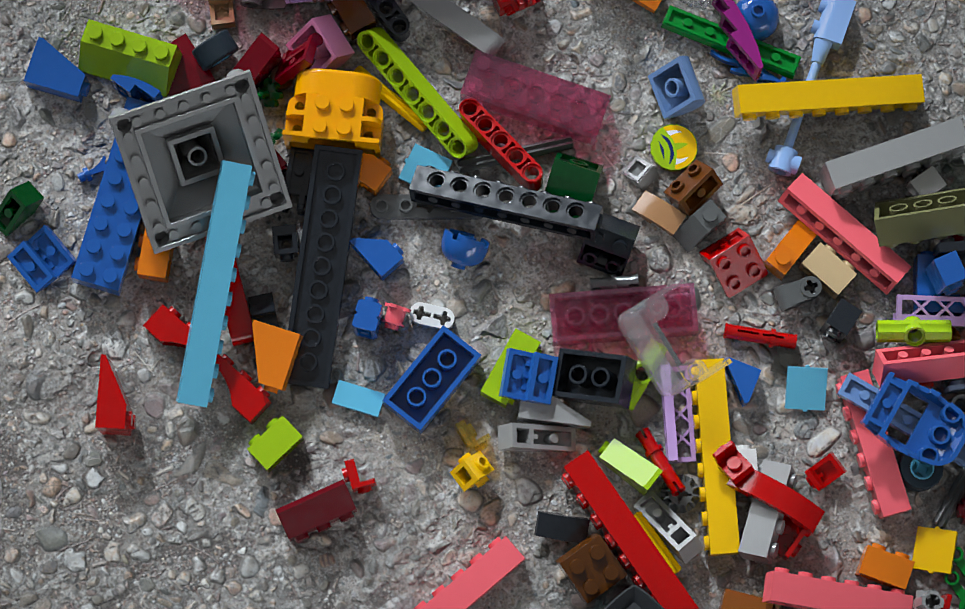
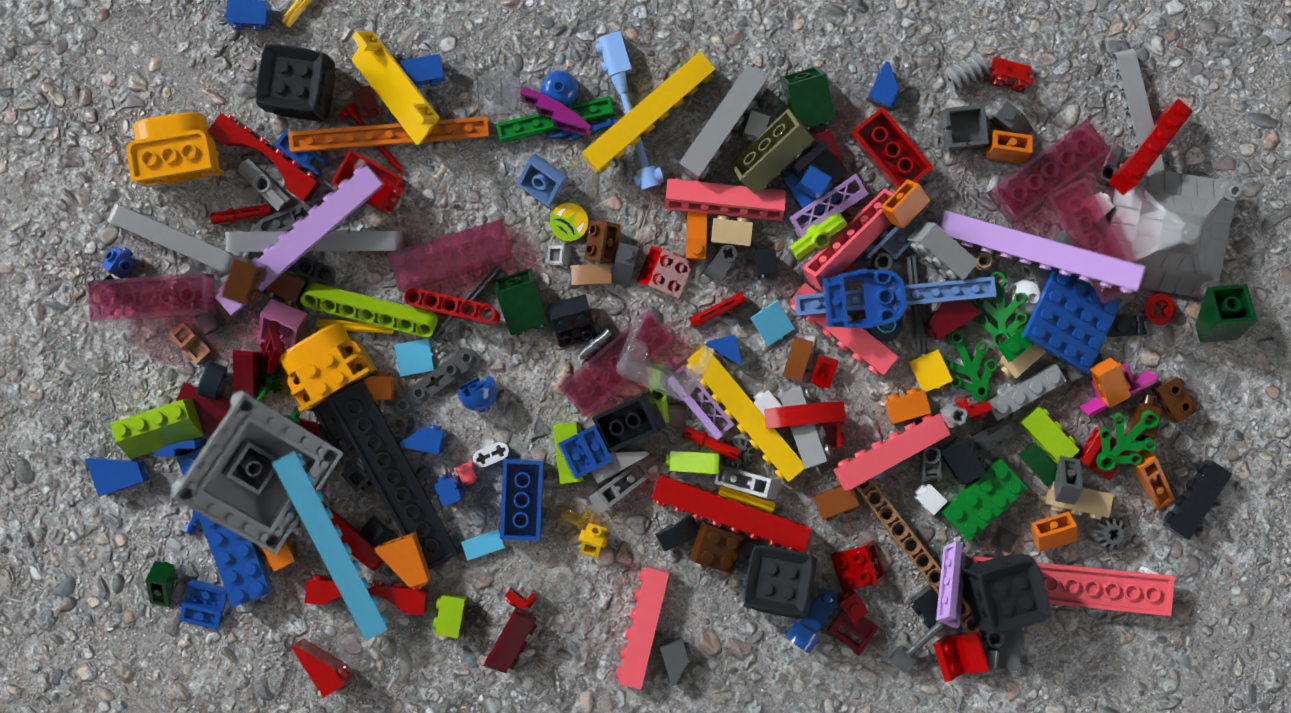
camera: 25 degrees left, 10 degrees up
(513, 212) = (419, 364): black brick -> none
(732, 462) = (760, 413): red bracket -> none
(806, 441) = (797, 359): none -> dark orange slope

